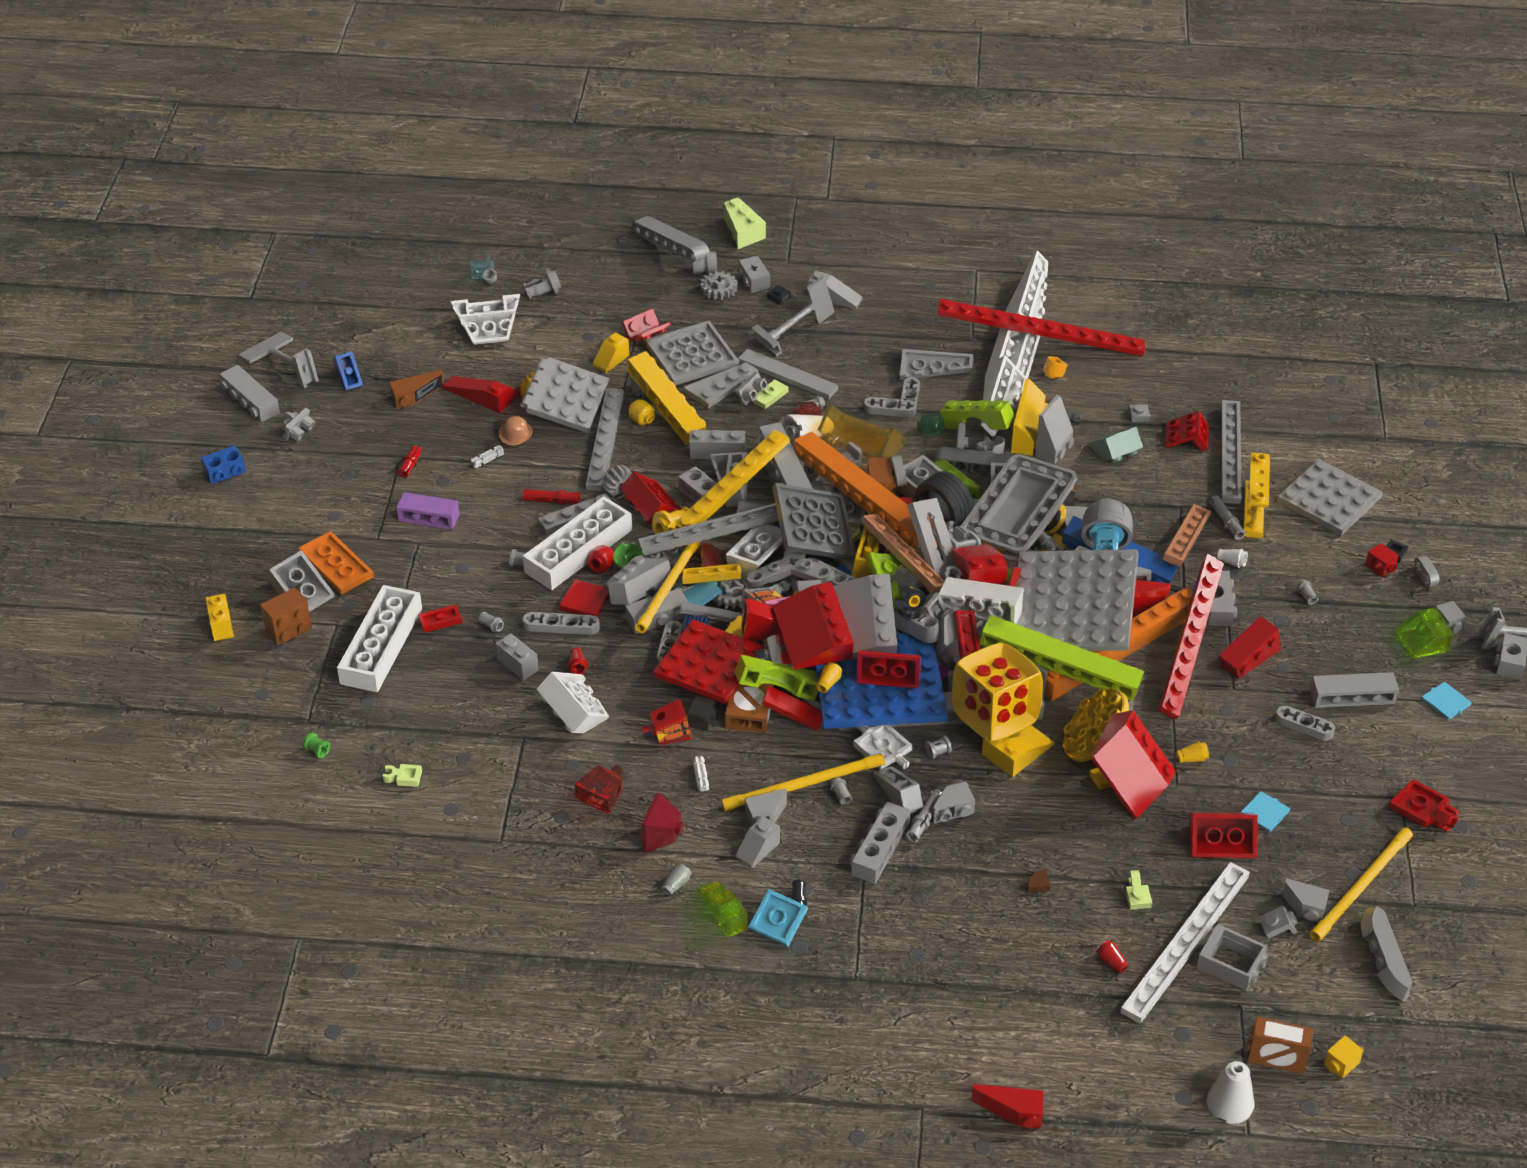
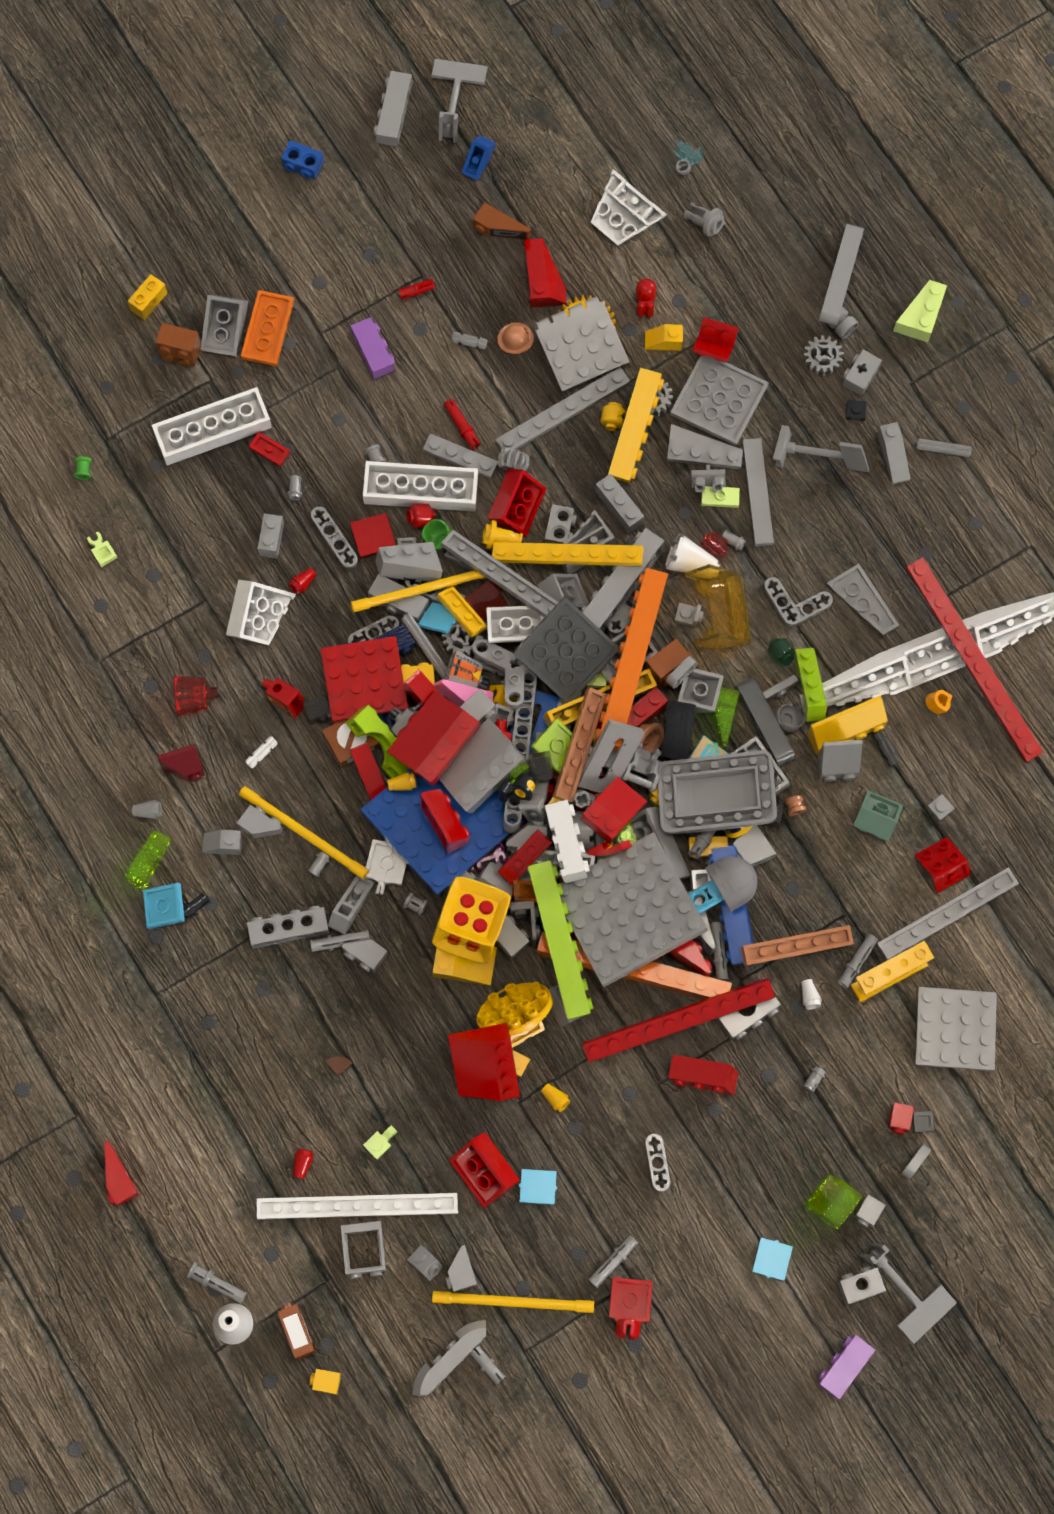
camera: 50 degrees right, 30 degrees up
(294, 423) = (397, 173): light grey hips -> none
(565, 343) = (645, 294): none -> red piece
(856, 268) = (943, 447): none -> light grey axle
(1172, 1092) = (207, 1278): none -> light grey pin
(1354, 689) = (722, 1180): light grey brick -> none
(1366, 779) = (613, 1261): none -> light grey pin
(1413, 933) = (487, 1365): none -> light grey pin

